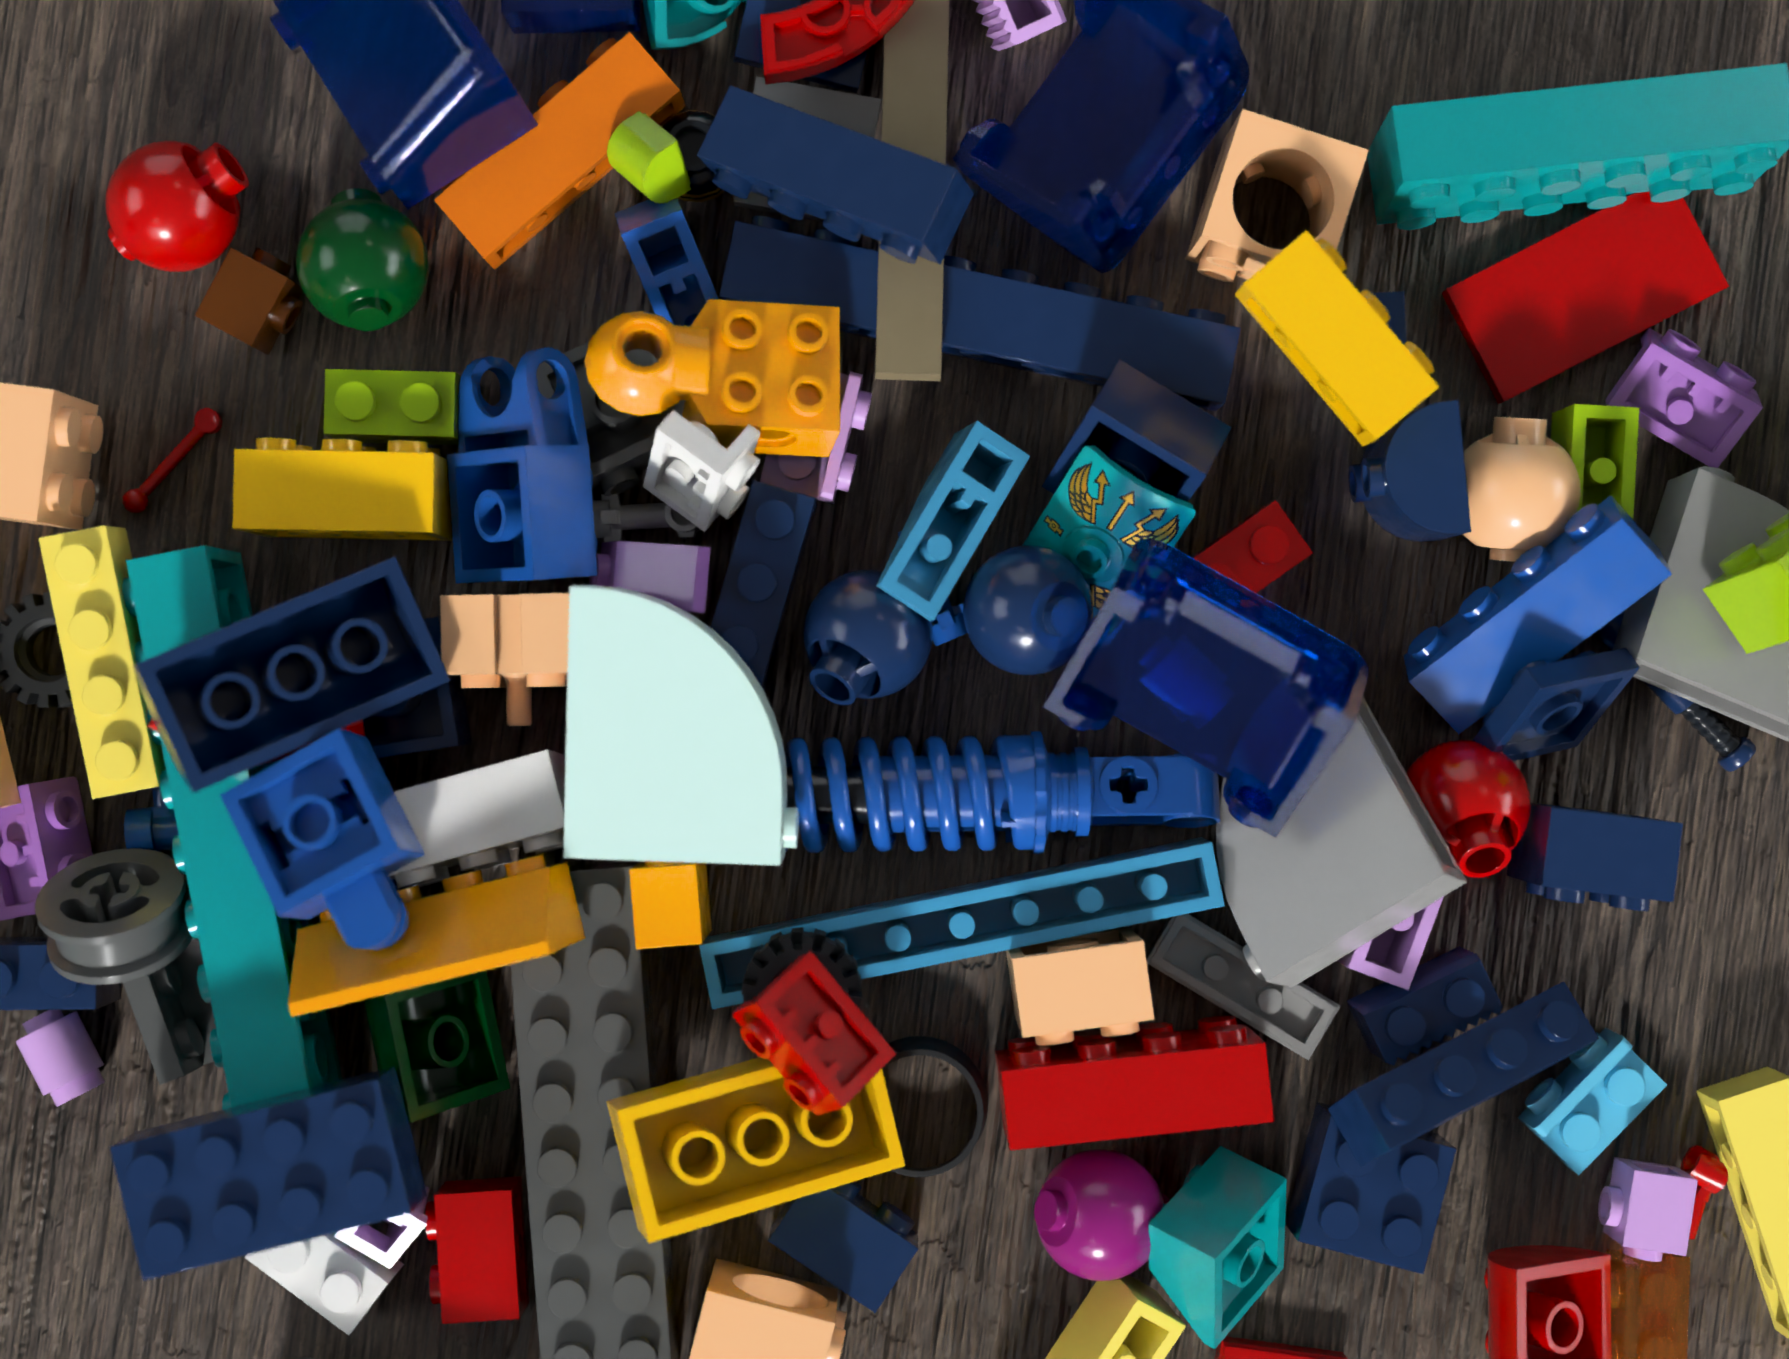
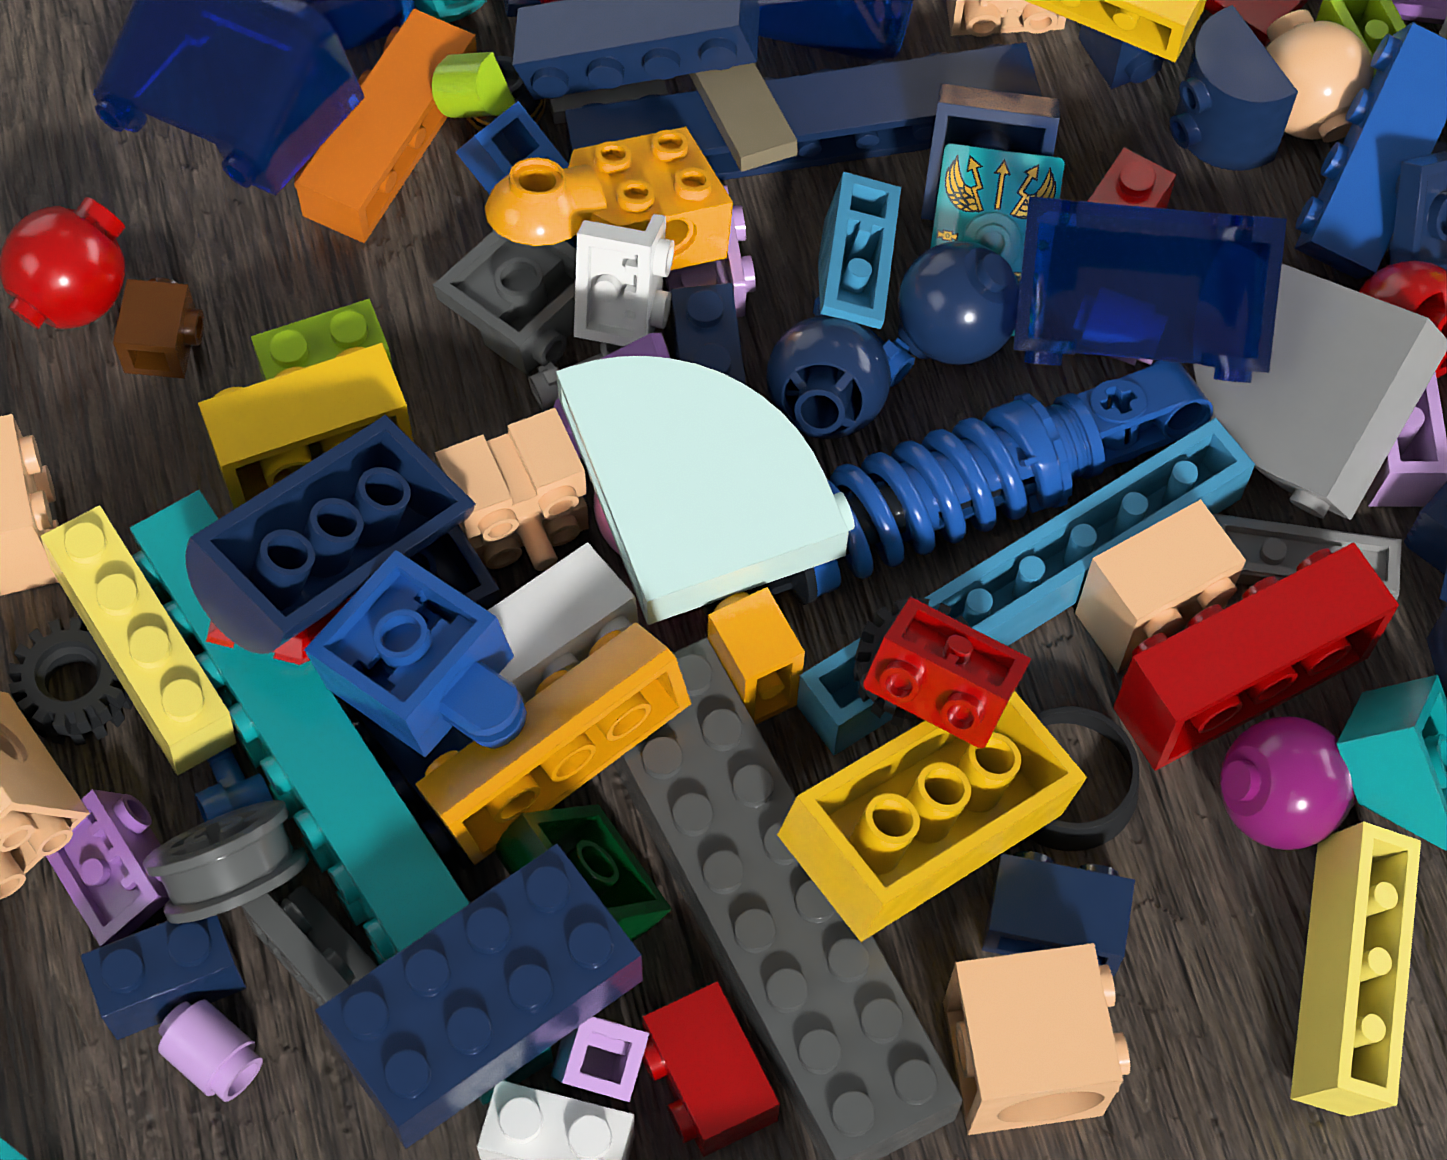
camera: 25 degrees left, 25 degrees down
(206, 422) = (148, 449): red hinge -> none
(362, 261) = (251, 251): dark green brick -> none
(521, 476) = (464, 353): blue brick -> none

